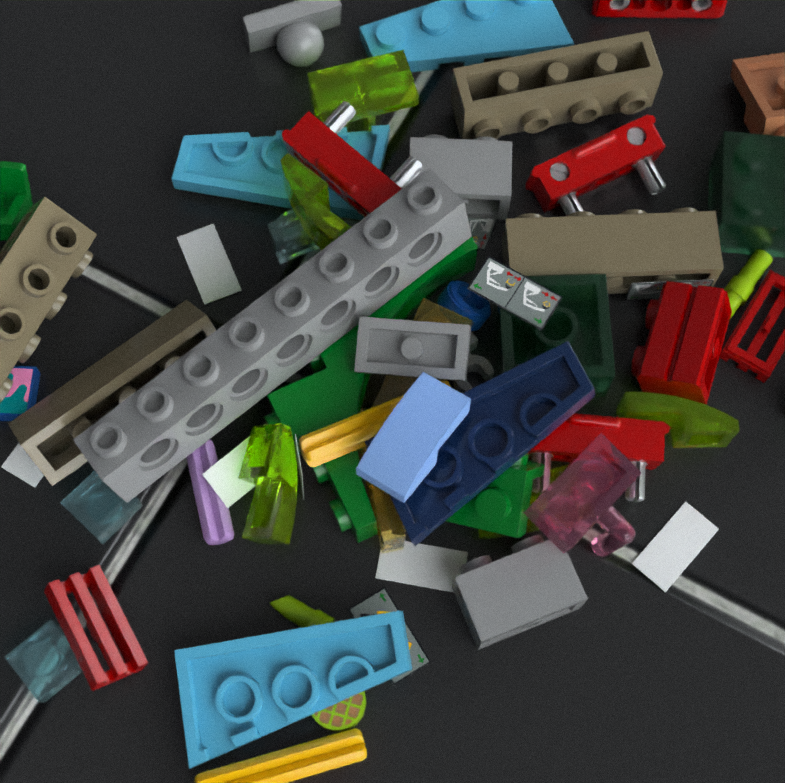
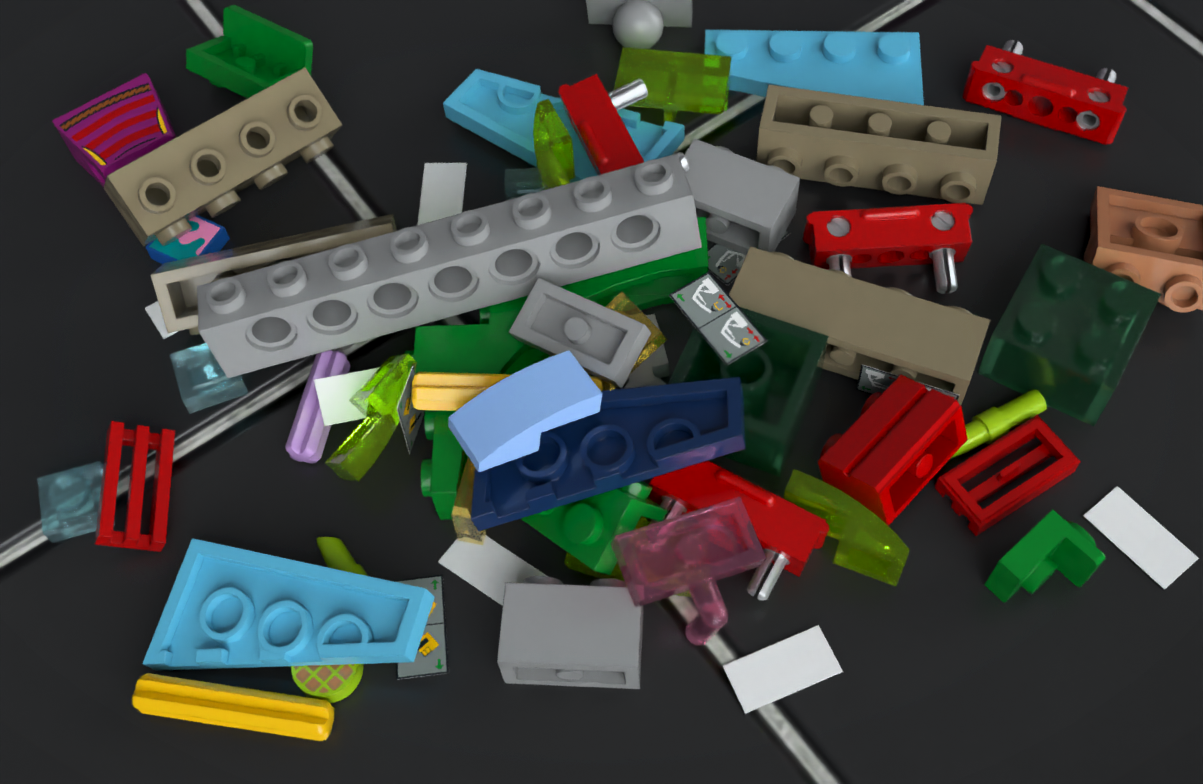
camera: 30 degrees right, 10 degrees down
(465, 302) = (671, 322): blue tile -> none

